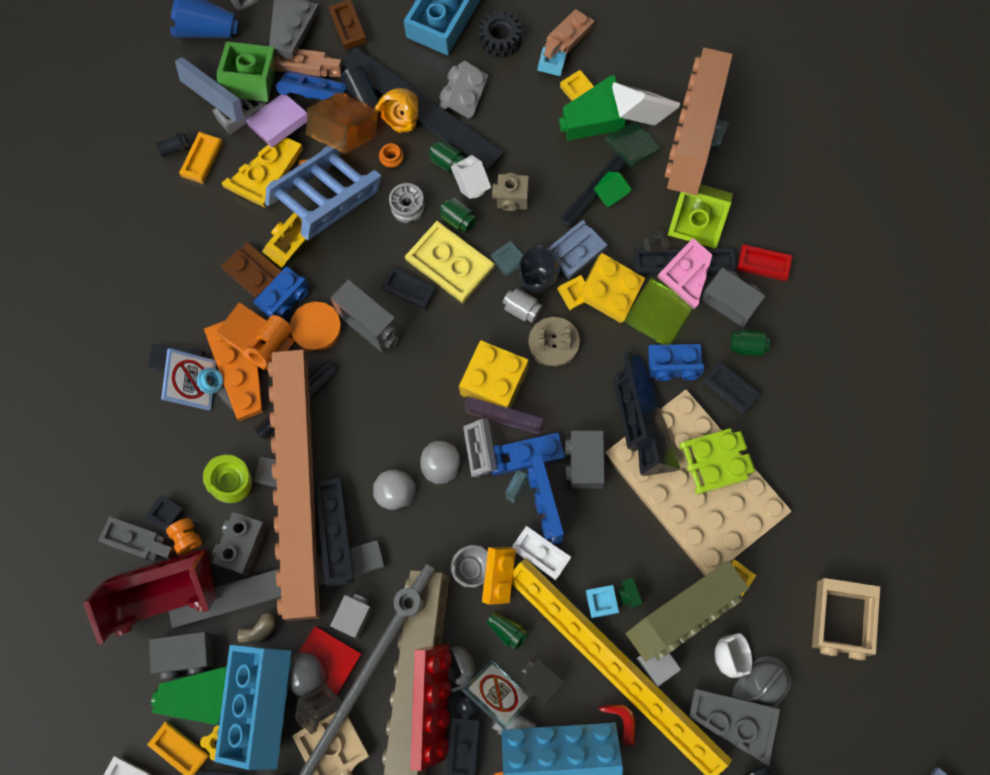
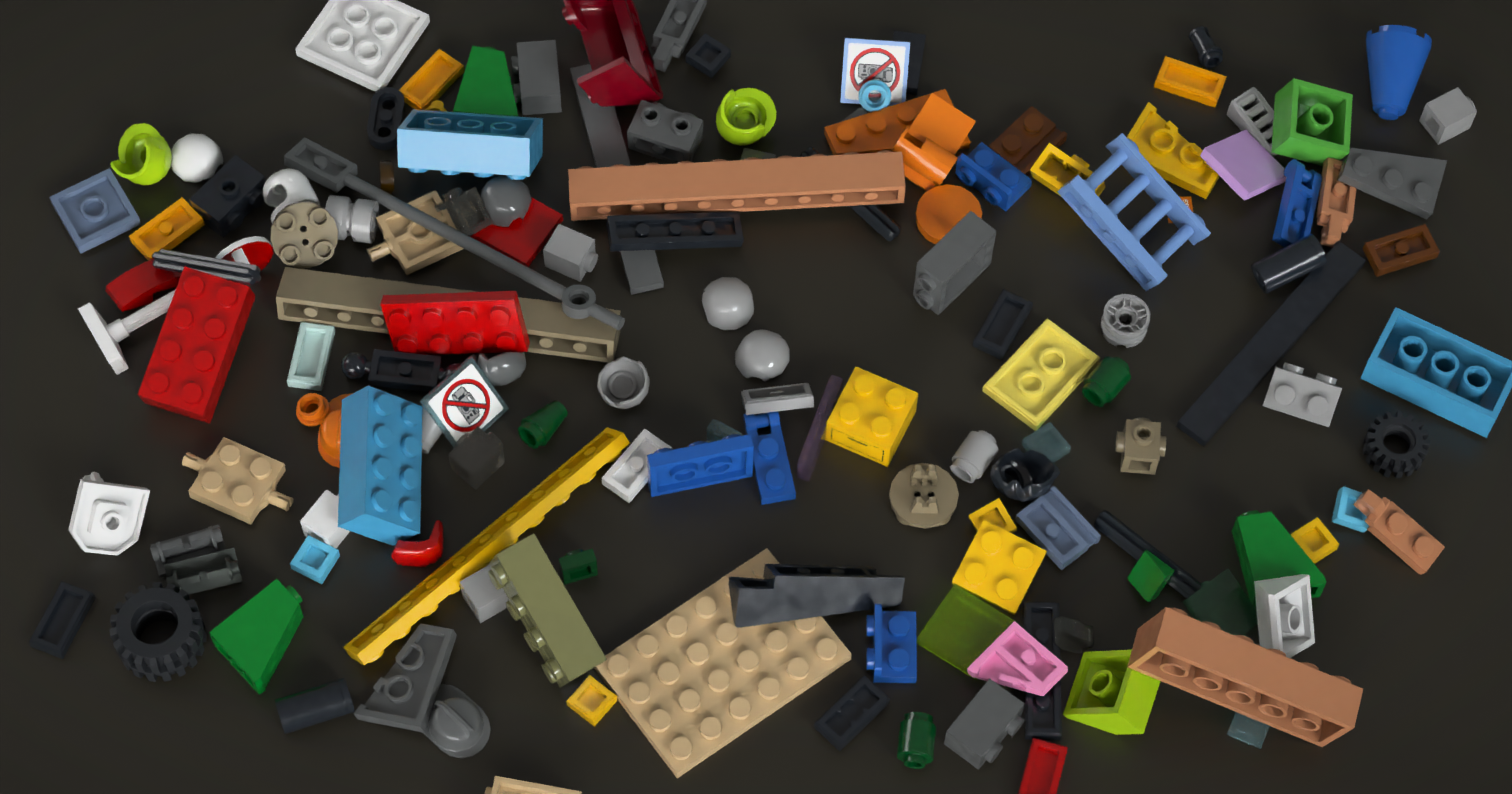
camera: 85 degrees right, 10 degrees down
(184, 536) = (678, 75): orange wheel -> none
(209, 89) = (1281, 79): sand blue tile -> none
(260, 631) = (558, 157): dark tan arm -> none
(341, 122) = (1234, 233): clear orange brick -> none
(391, 149) = (1200, 296): orange plate -> none
(393, 103) = (1264, 307): light orange hair -> none
(445, 155) = (1194, 370): dark green brick -> none
(471, 177) = (1161, 394): white brick -> none
(498, 575) = (609, 411): light orange plate -> none
(586, 460) = (756, 523): dark grey brick -> none
(602, 601) = (571, 533): medium azure plate -> none
(718, 460) = (747, 678): lime plate -> none
(733, 656) = (491, 680): white hair -> none

